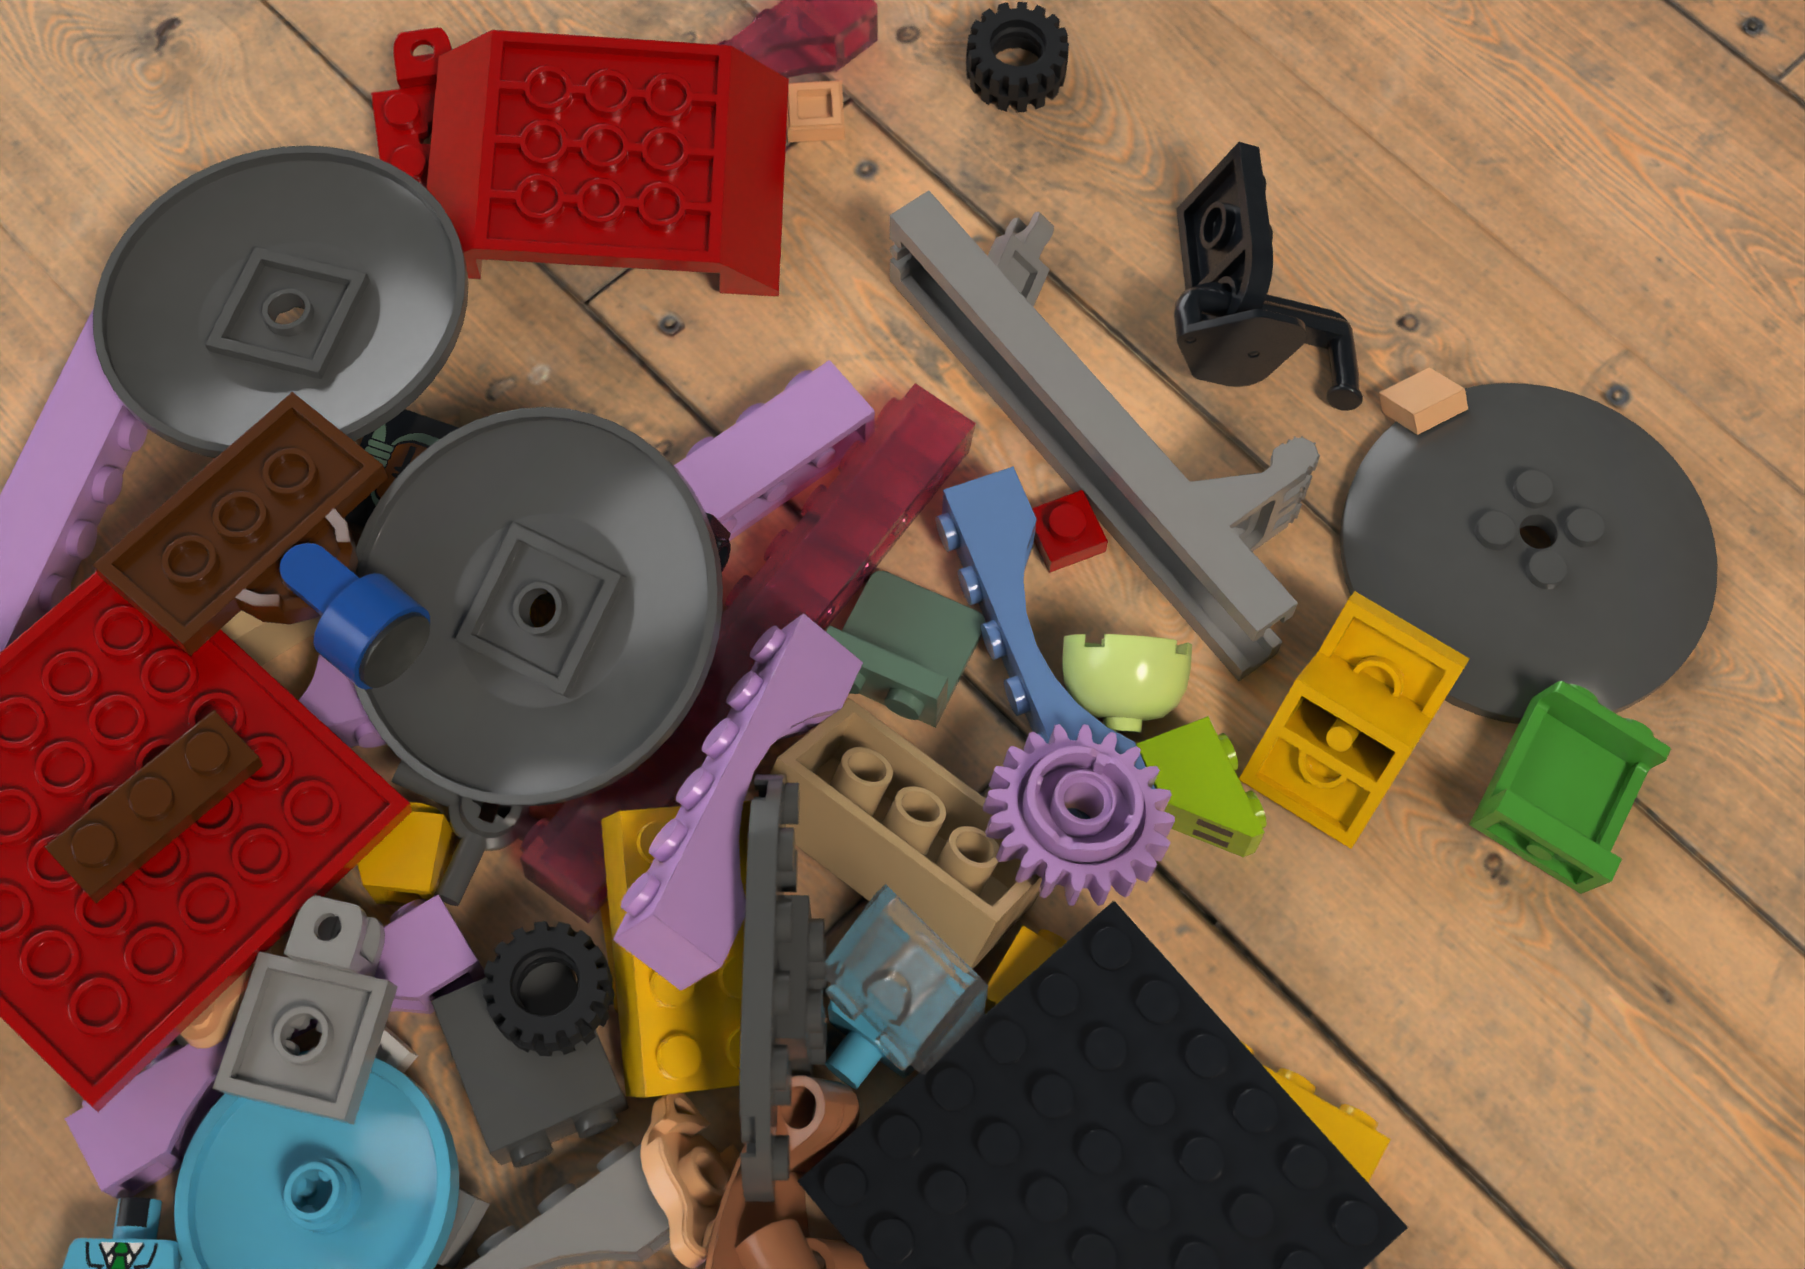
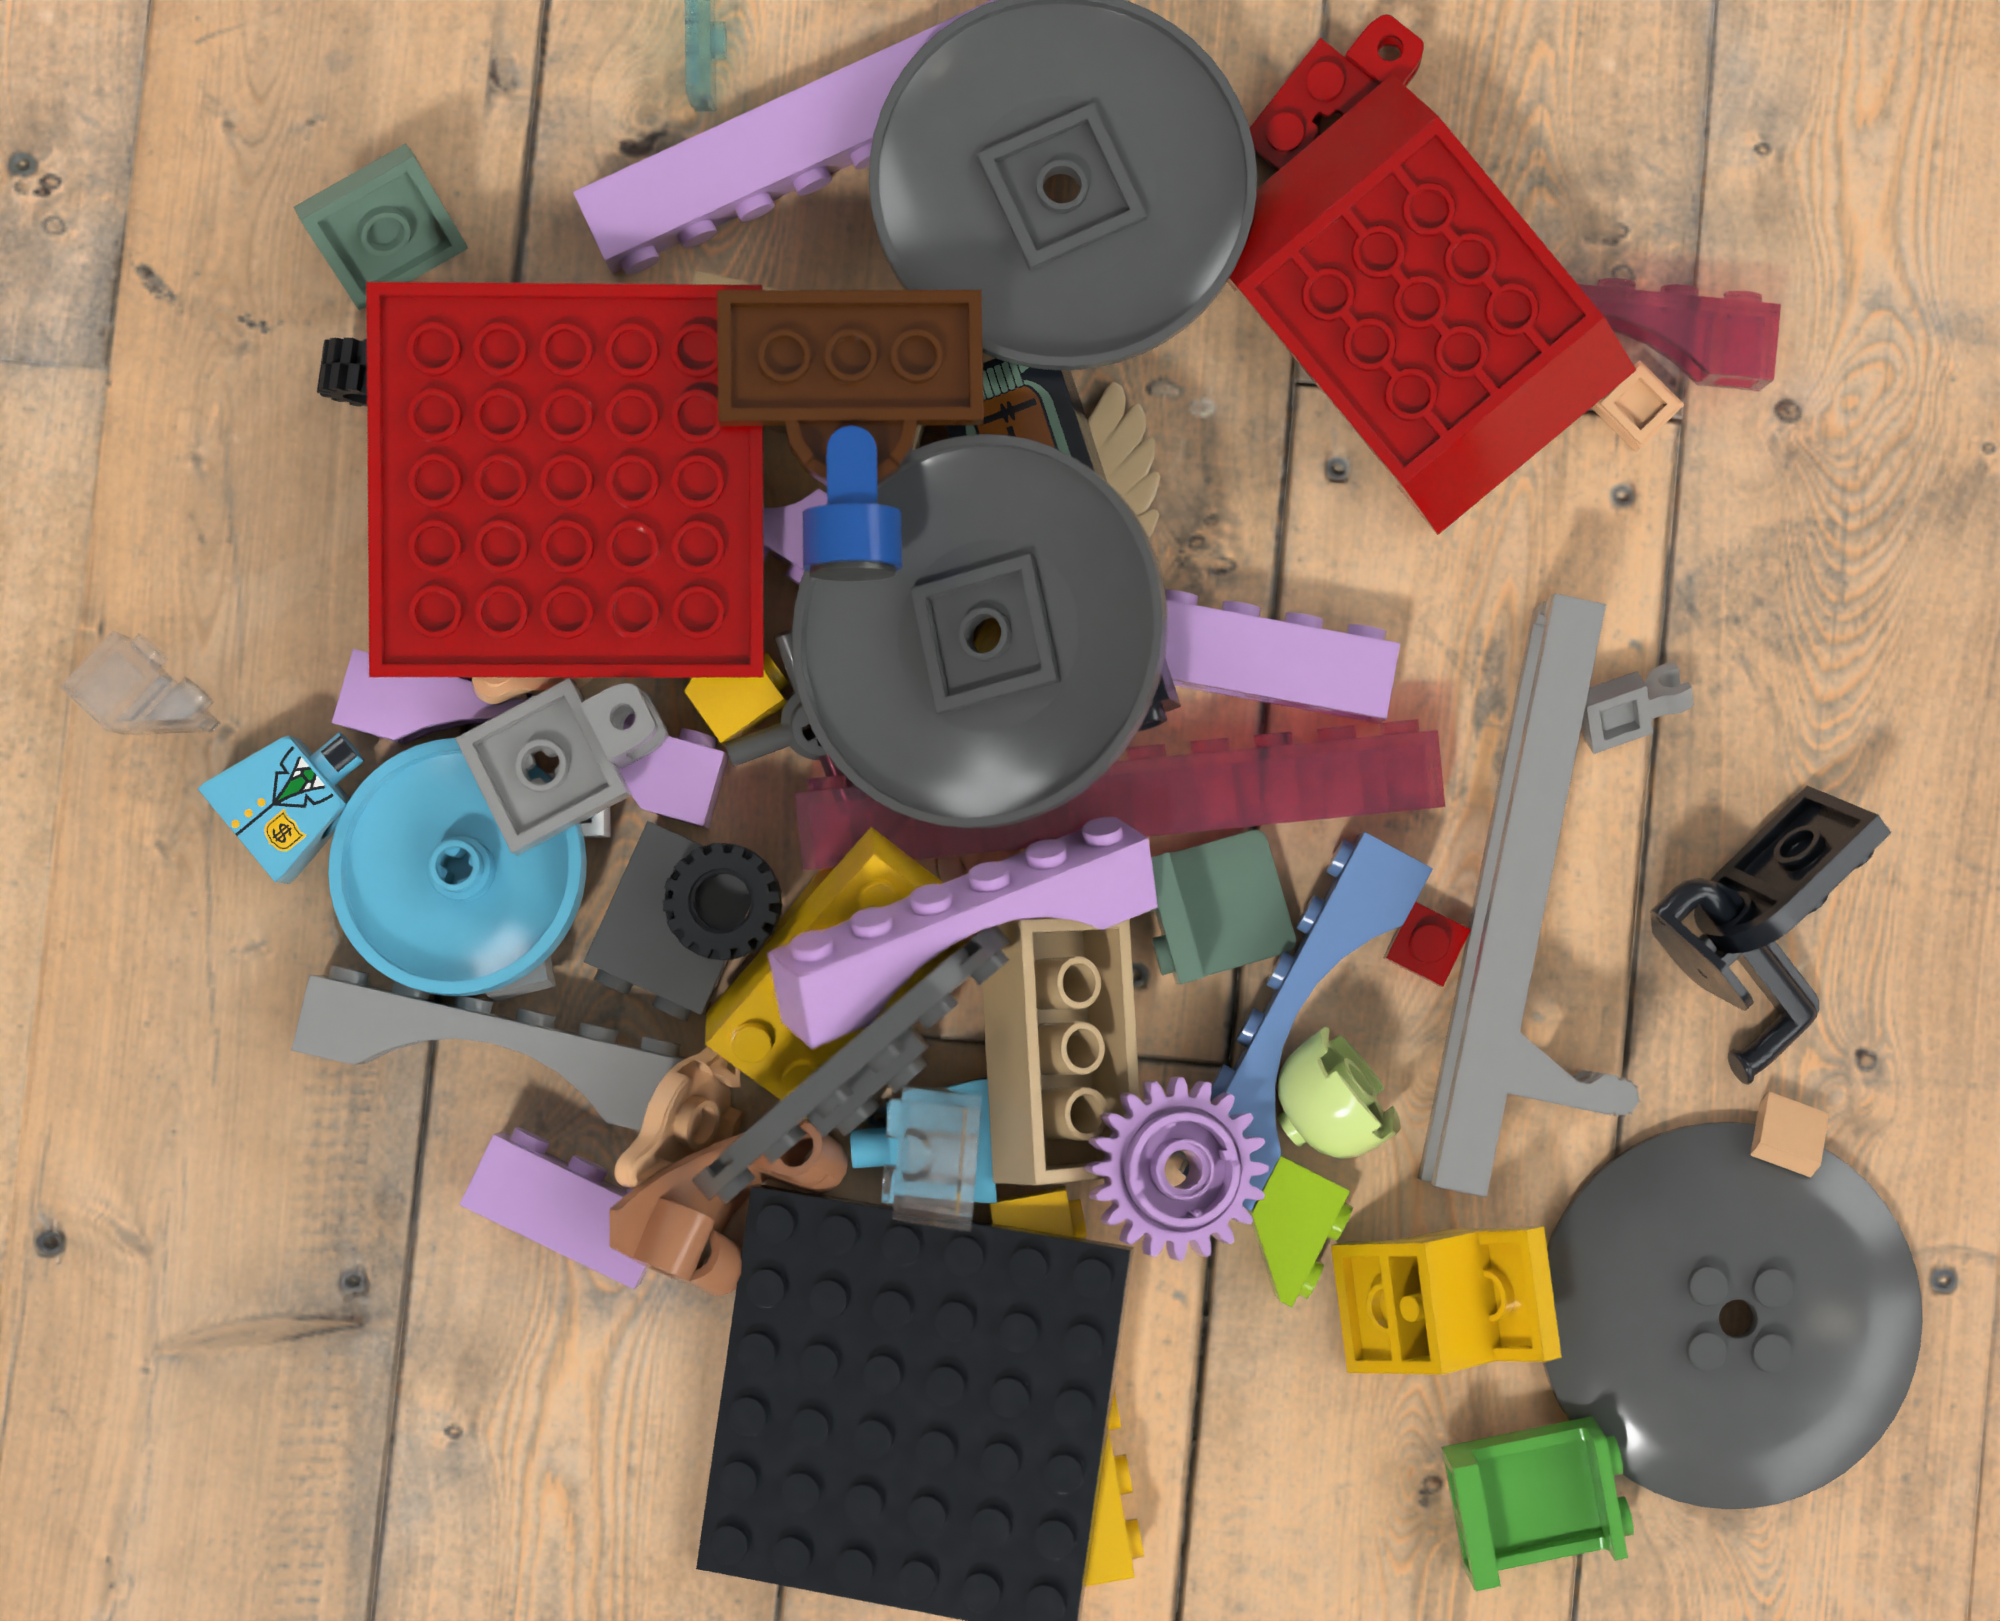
camera: 50 degrees right, 20 degrees up
(154, 806) = (596, 510): reddish brown plate -> none
(1021, 30) = (1873, 513): black tyre -> none

